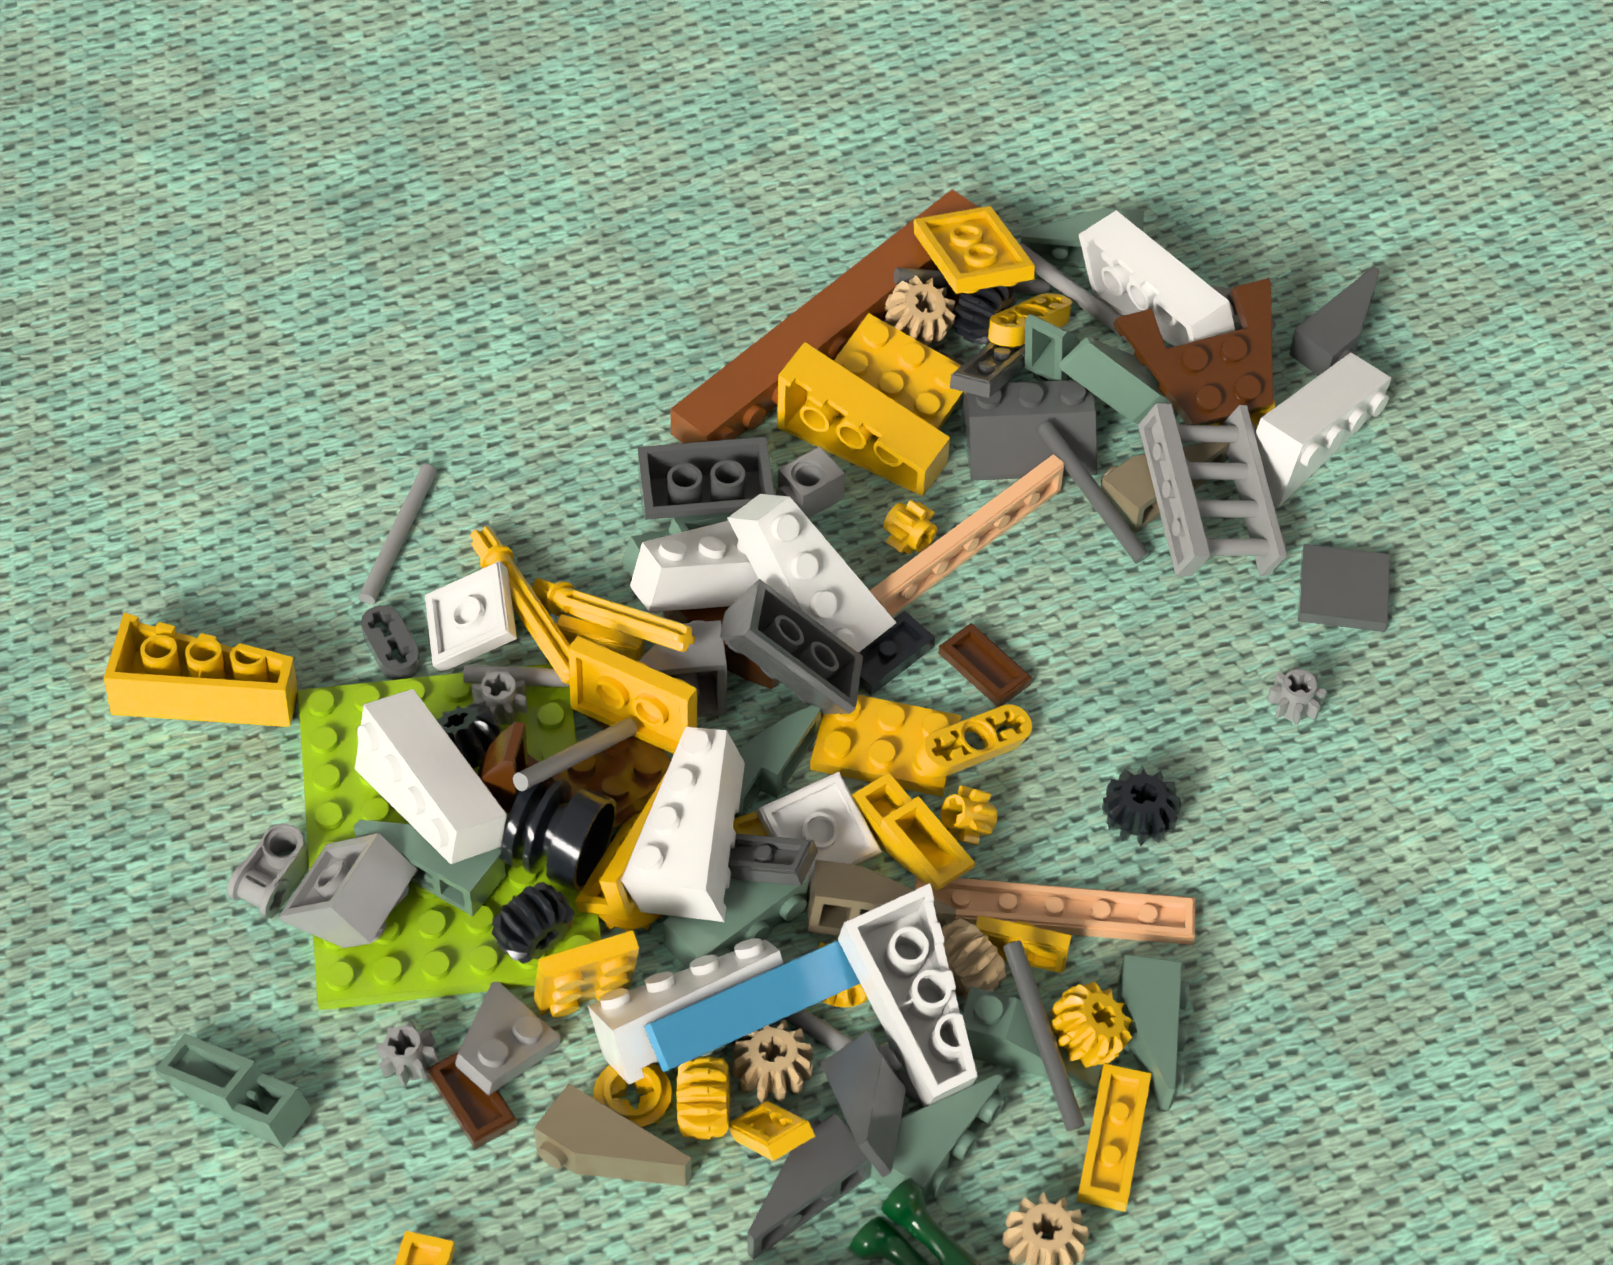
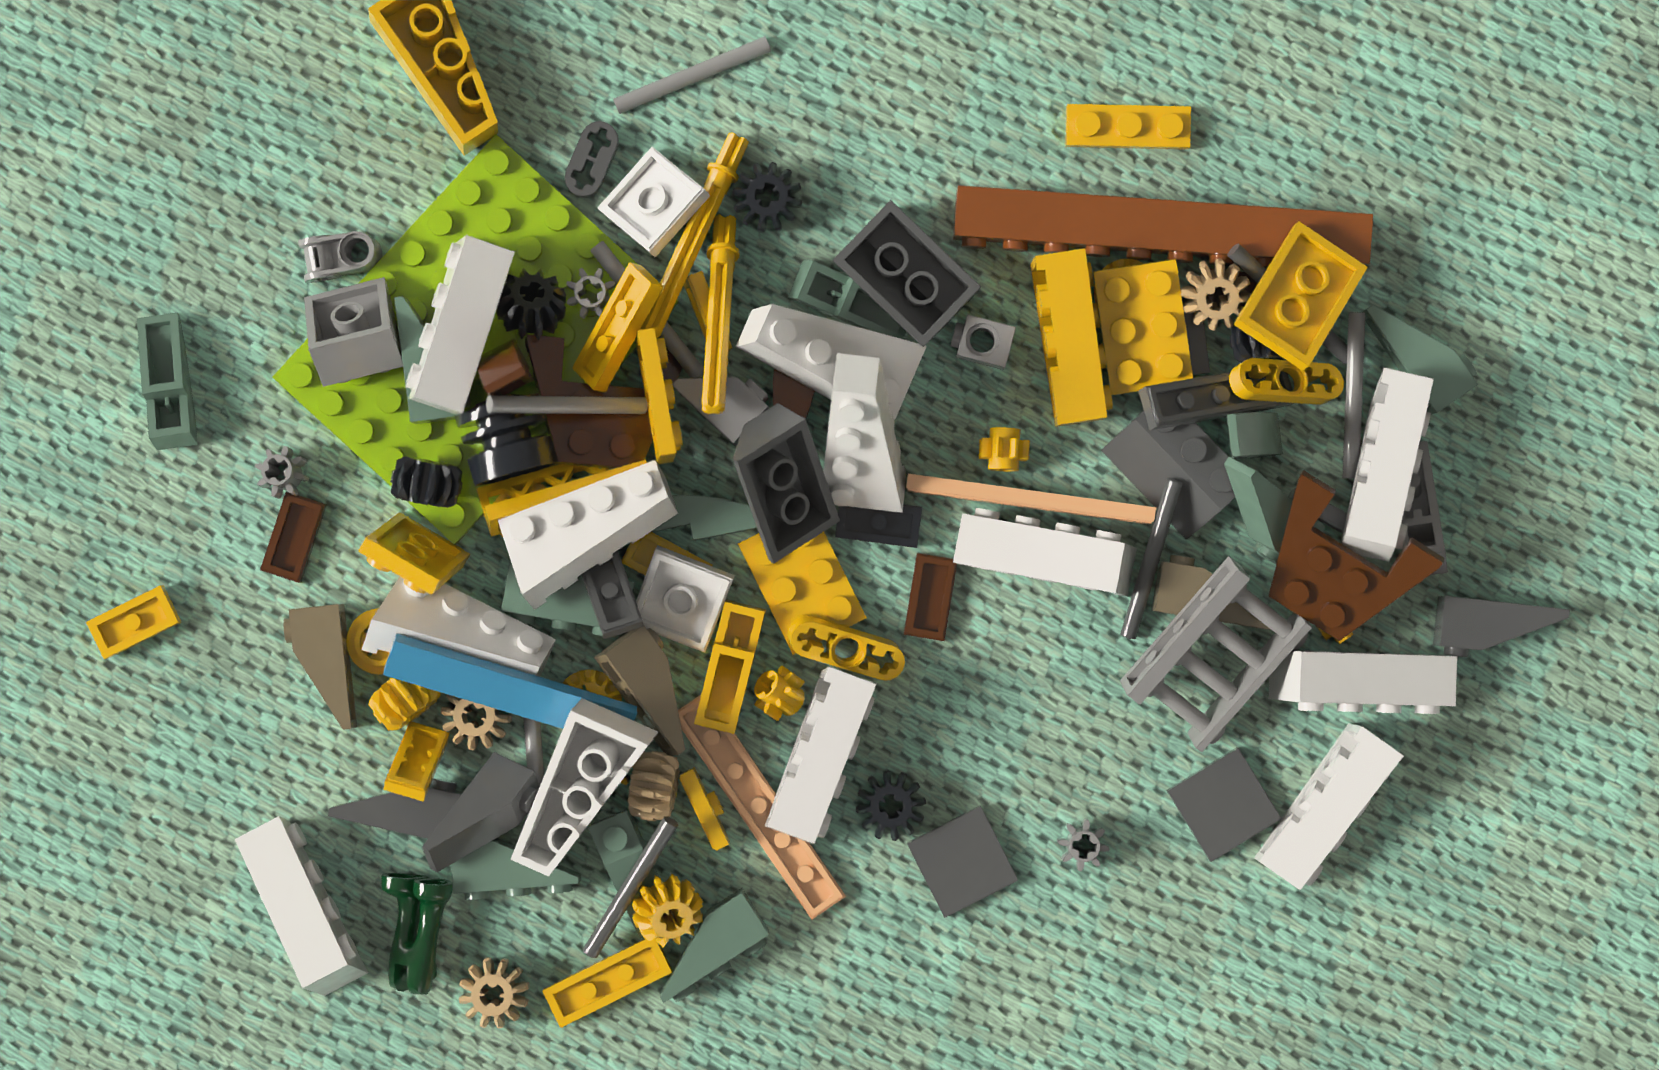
camera: 55 degrees right, 35 degrees up
(503, 1040) = (342, 522): light grey wing -> none
(546, 686) = (617, 327): none -> yellow plate
(548, 544) = (758, 186): none -> black gear
(733, 299) = (1128, 126): none -> yellow plate
(1024, 550) = (1045, 553): none -> white wedge
(1049, 809) = (820, 754): none -> white wedge
(1237, 796) = (962, 861): none -> dark grey tile
(1404, 505) = (1328, 805): none -> white wedge

